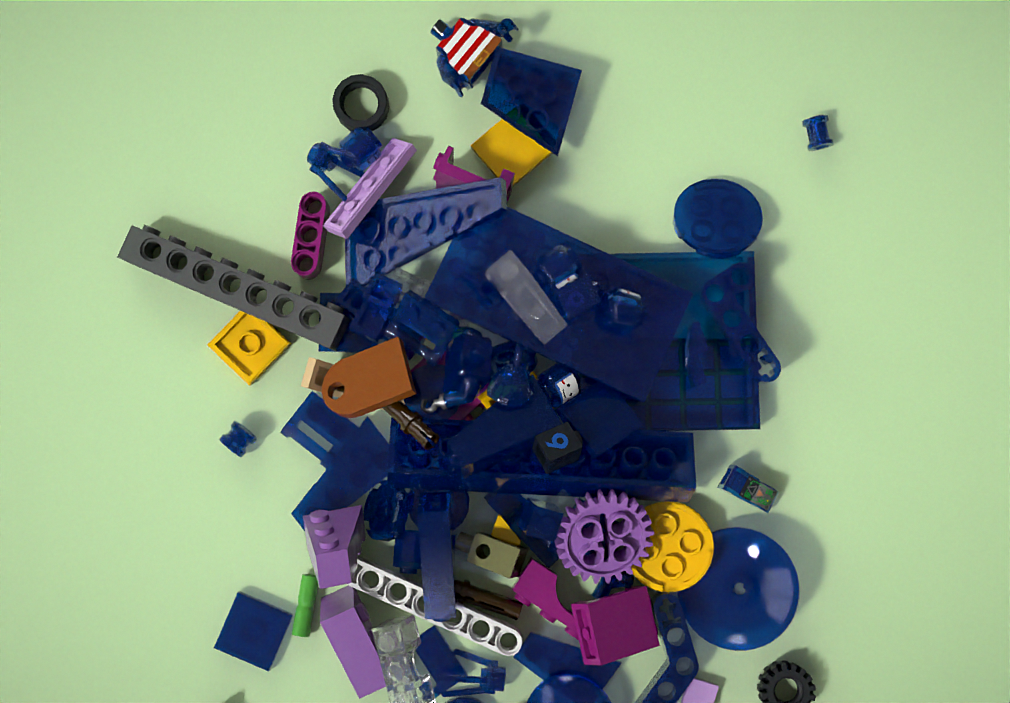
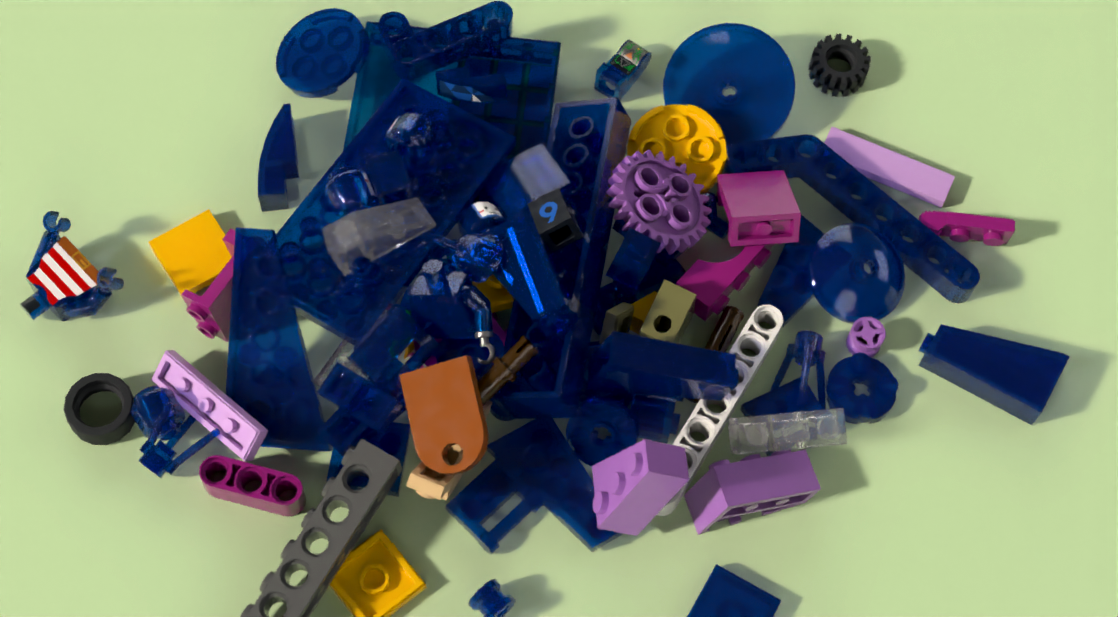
camera: 90 degrees left, 20 degrees down
(305, 609) = (711, 550): bright green piece -> none
(482, 511) = (617, 319): none -> olive tile
(532, 95) = (138, 213): clear blue wedge -> none
(606, 200) = (278, 162): none -> clear blue slope

